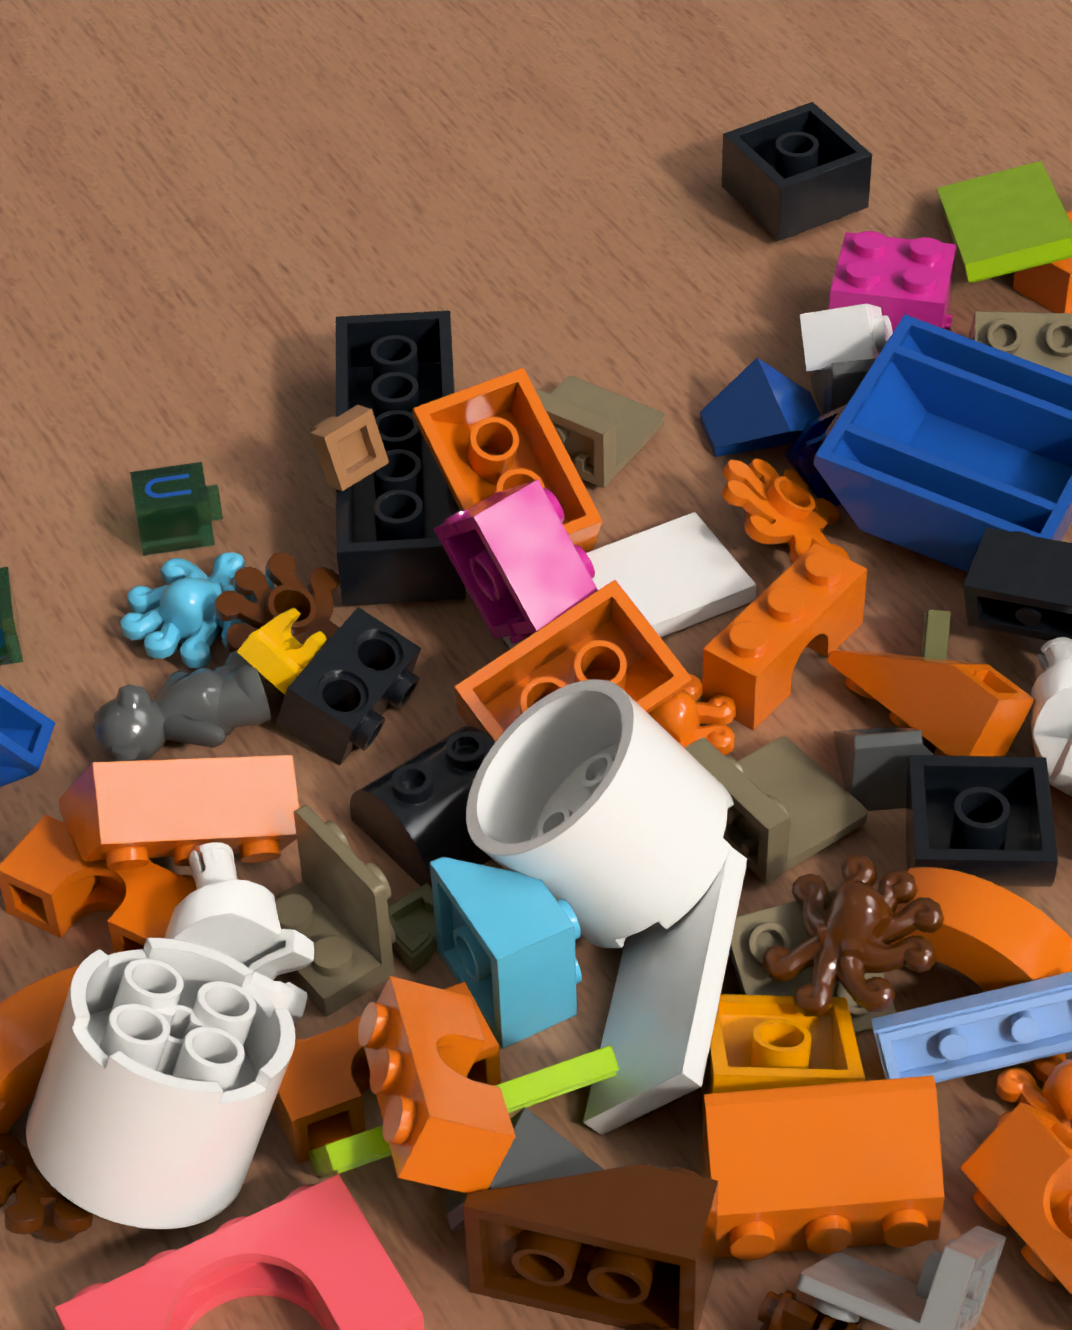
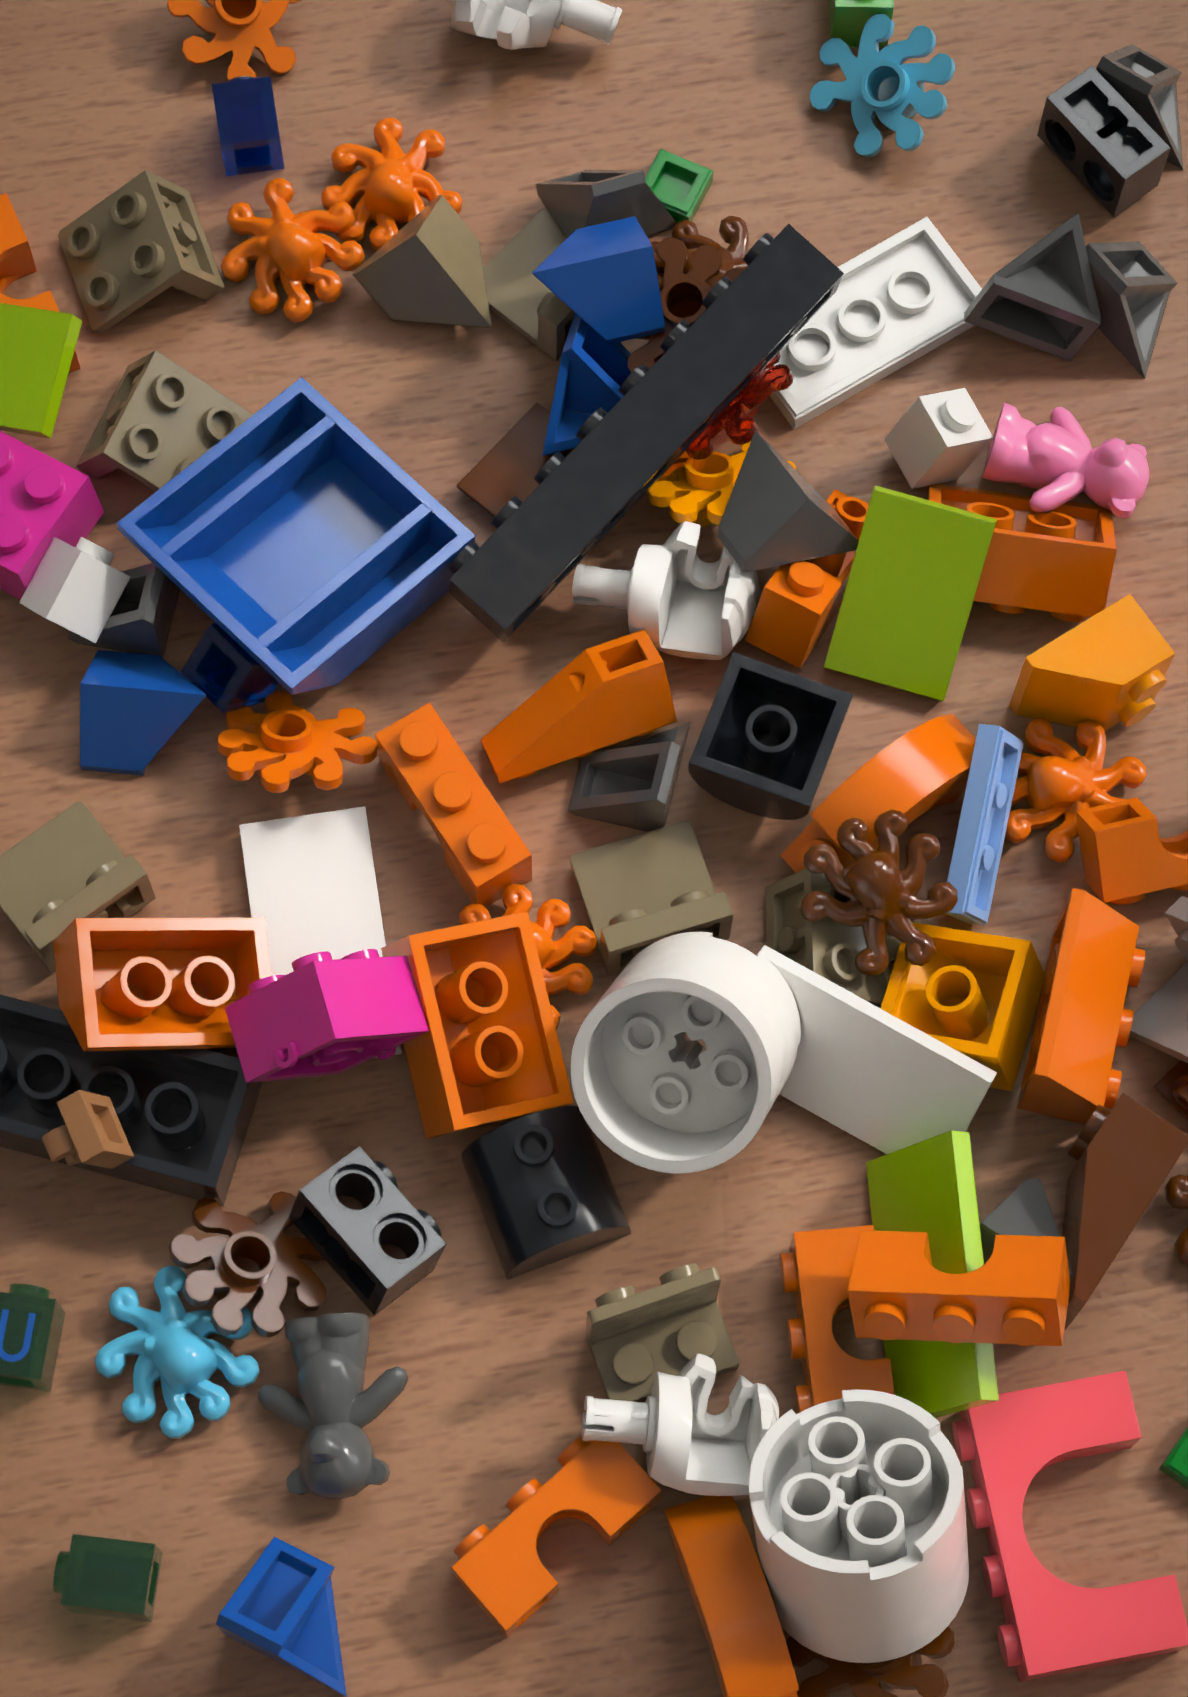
camera: 75 degrees left, 25 degrees up
(176, 805) = (509, 1434): slope -> none
(278, 653) = (322, 1283): yellow tile -> none
(414, 927) = (663, 1252): olive tile -> none
(507, 945) = (771, 1184): medium azure slope -> none
(935, 634) = (499, 670): olive tile -> none

